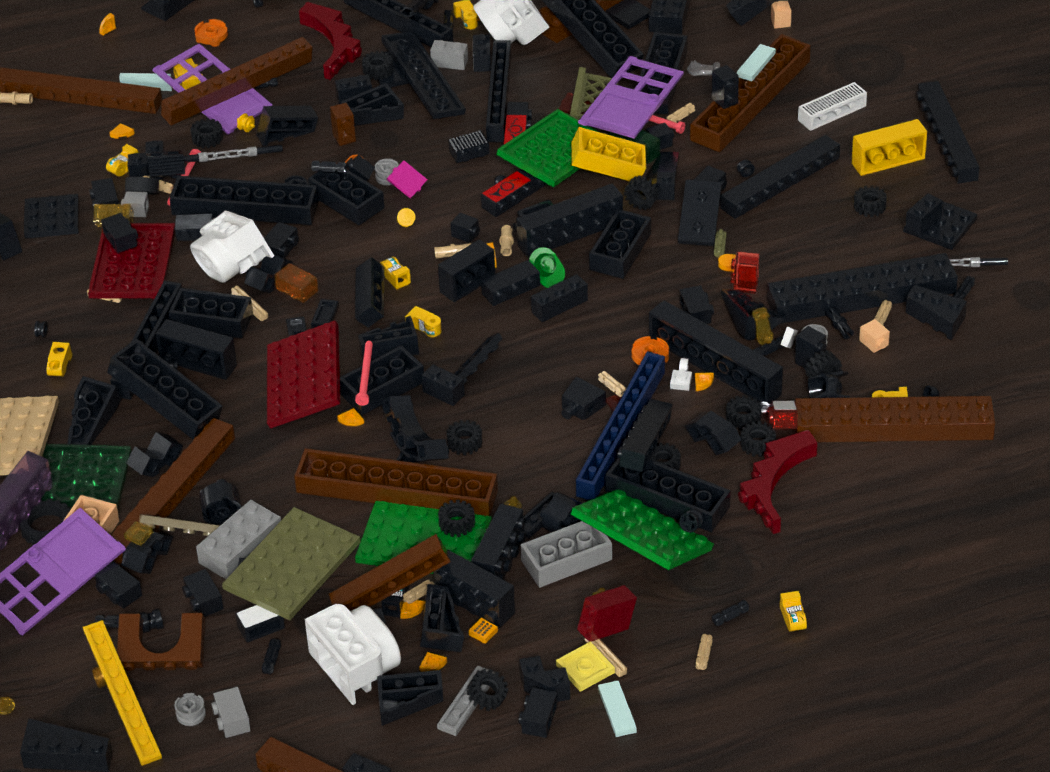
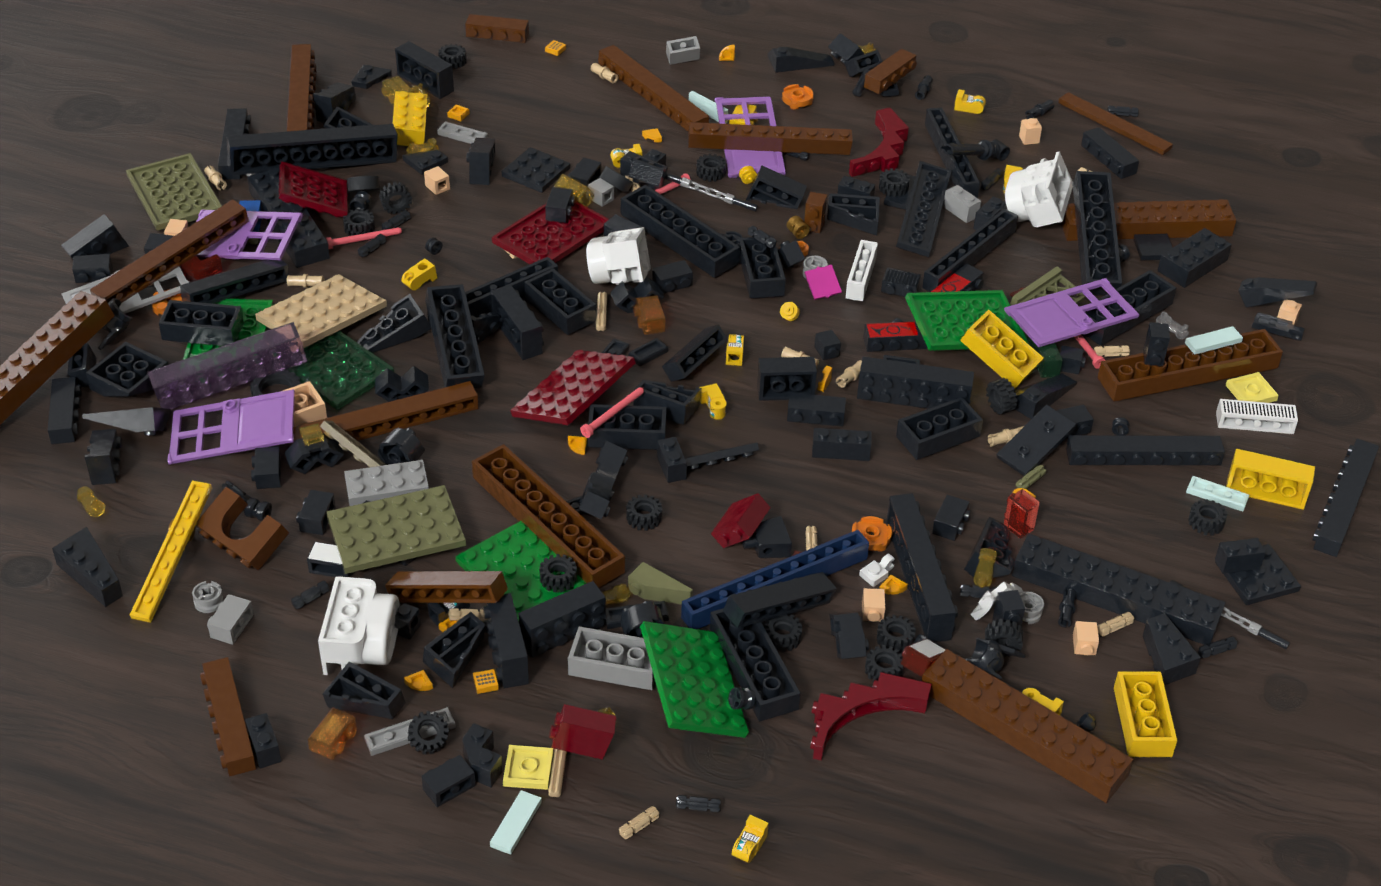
camera: 35 degrees right, 0 degrees up
(68, 41) = (683, 50): none -> light grey brick
(337, 145) = (798, 227): none -> pearl gold wheel
(414, 738) = (332, 733): none -> clear orange brick
(430, 152) = (861, 270): none -> white brick
(534, 484) = (657, 586): none -> olive slope
(548, 265) = (858, 412): green piece -> none
(551, 397) = (740, 520): none -> dark red brick
(671, 223) = (1002, 437): none -> tan pin
(706, 400) = (873, 604): none -> light nougat brick
(776, 28) = (1277, 326): none -> black hinge
(787, 353) = (984, 605): none -> white slope
(809, 87) = (1252, 388): none -> light yellow plate
(858, 179) = (1218, 493): none -> light aqua tile
(965, 362) = (1145, 714): none -> yellow brick

